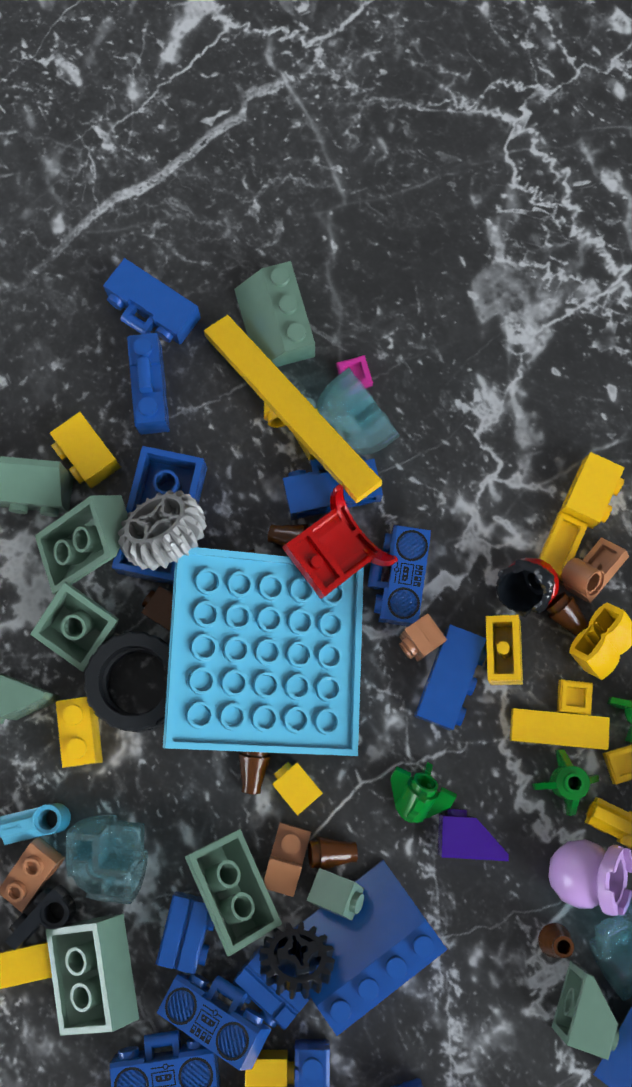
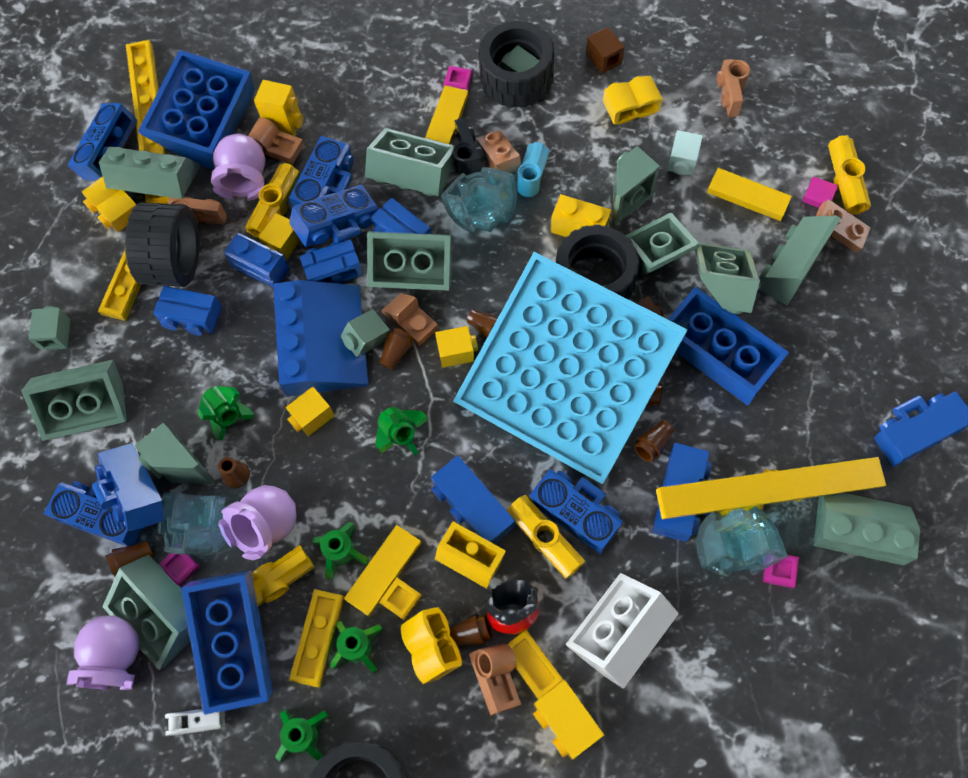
camera: 125 degrees right, 10 degrees down
(85, 450) = (806, 318): yellow brick -> none
(148, 384) = (846, 391): blue piece -> none
(162, 530) = (706, 322): light grey gear -> none
(286, 968) = (327, 286): black gear -> none
(334, 548) = (627, 459): red piece -> none
(421, 638) = (515, 486): nougat plate -> none
(449, 573) = (558, 550): none -> yellow piece
(451, 902) = (309, 412): none -> yellow brick
(467, 838) = (344, 449): dark purple slope -> none
(488, 483) = (622, 629): none -> white slope
(501, 1001) = (222, 409): none -> green brick

